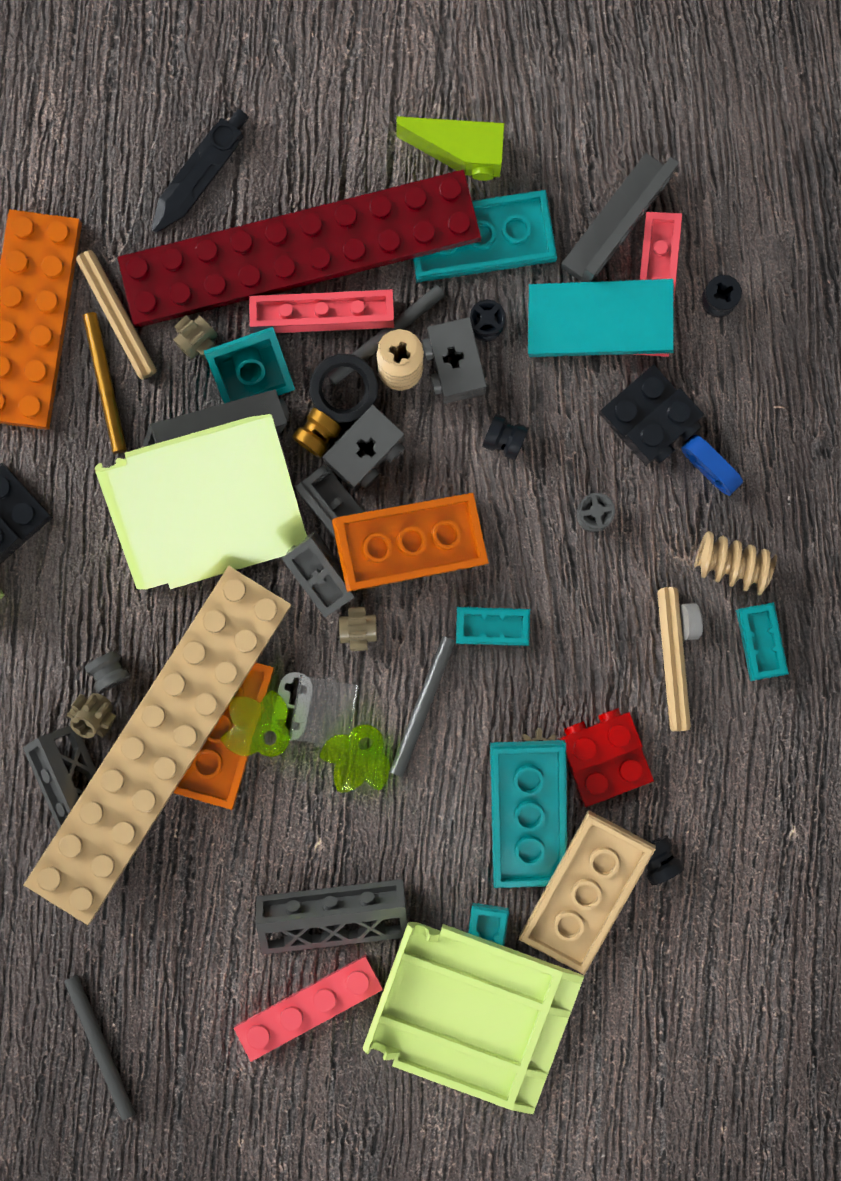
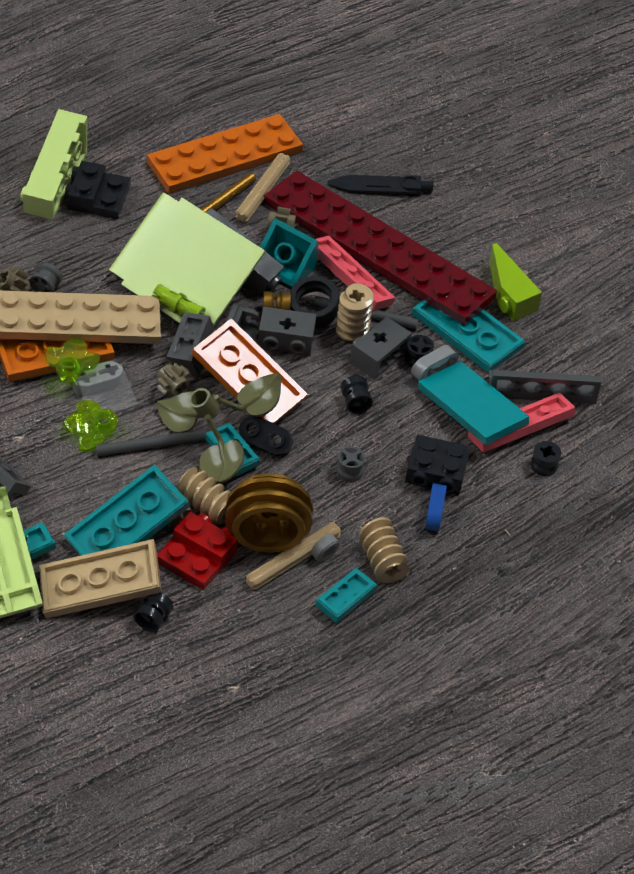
camera: 50 degrees right, 35 degrees down
(253, 550) = (176, 302): none -> lime pin
(499, 577) = (264, 435): none -> black plate
(504, 656) = (182, 411): none -> olive plant
(516, 317) = (434, 362): none -> light grey beam
(549, 701) = (204, 494): none -> tan piece
(635, 666) = (269, 512): none -> pearl gold wheel

